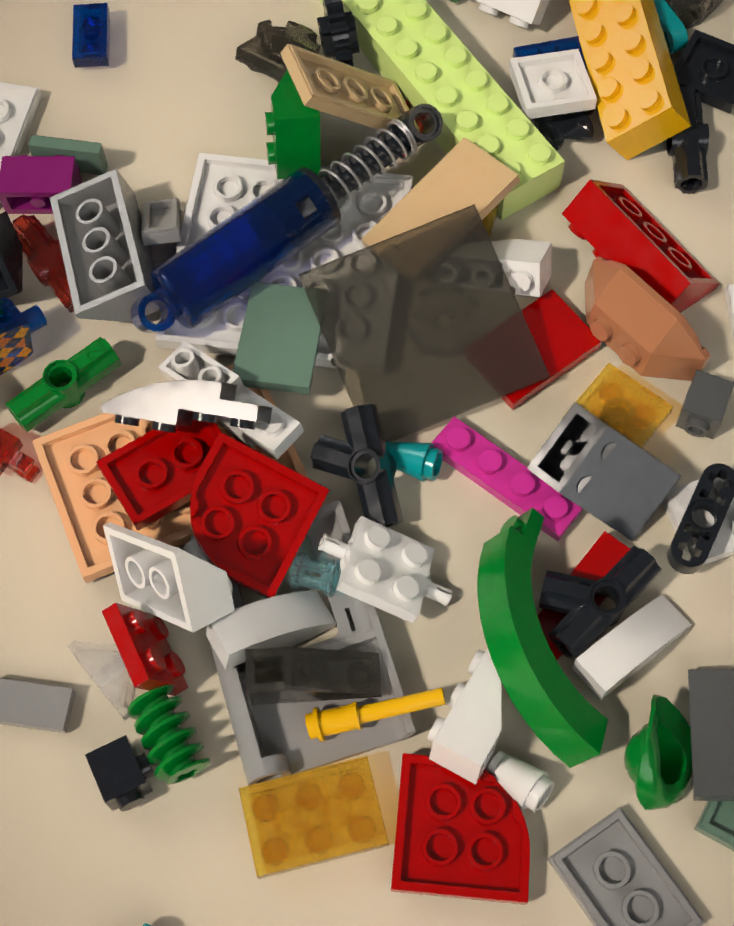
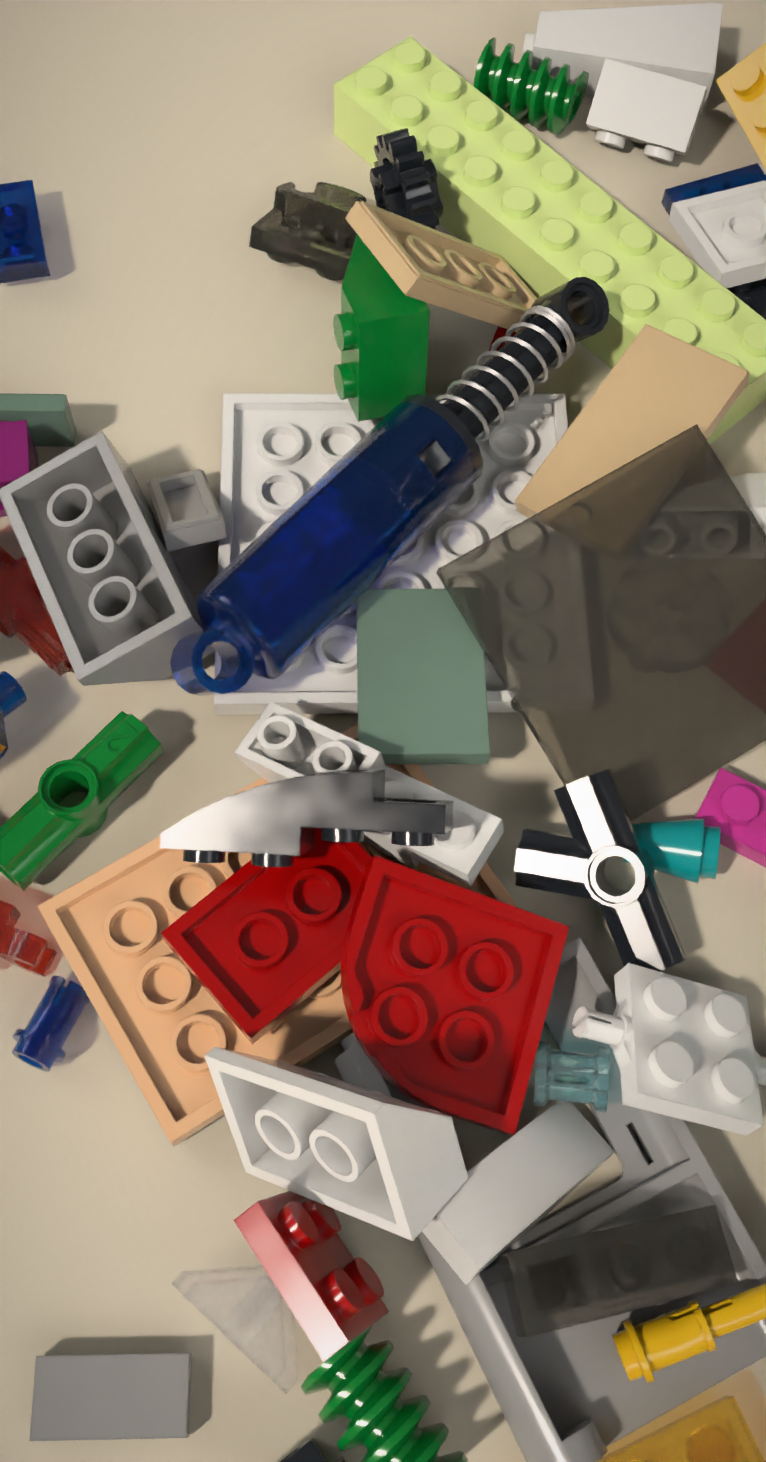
camera: 15 degrees left, 0 degrees up
(28, 507) = (50, 1024): none -> clear blue pin

